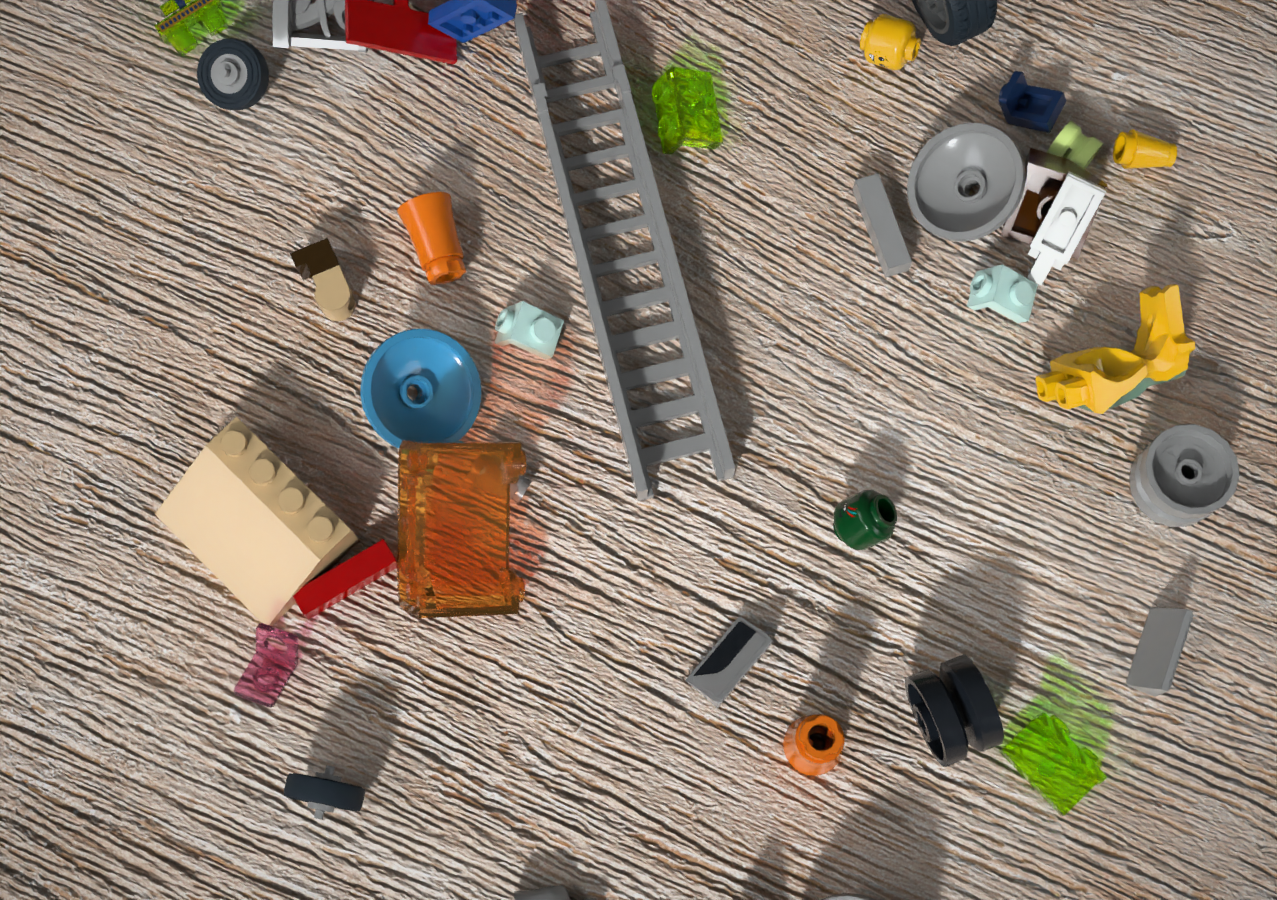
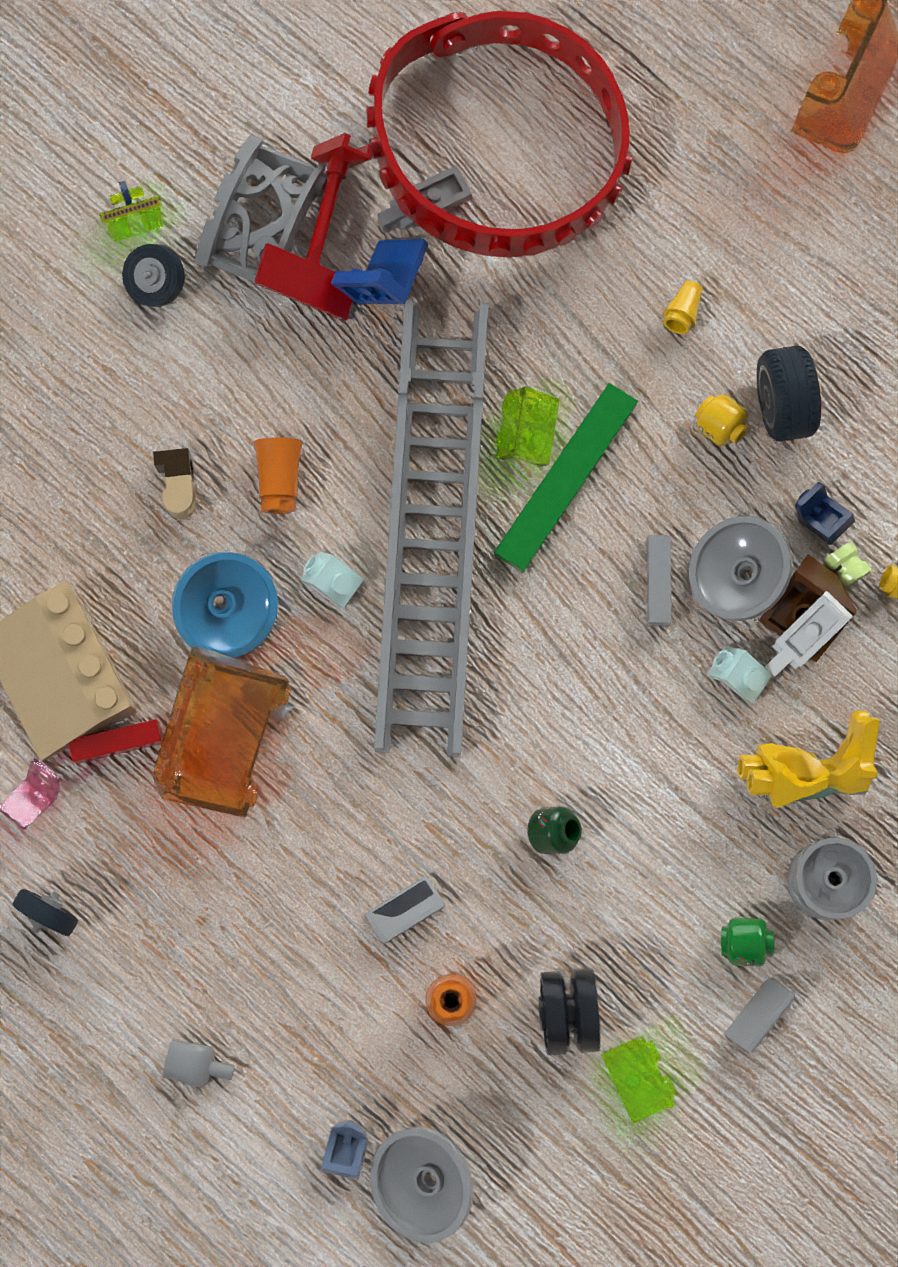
camera: 15 degrees right, 5 degrees up
(744, 152) = (565, 477): none -> green tile
(1116, 573) = (747, 941): none -> green head

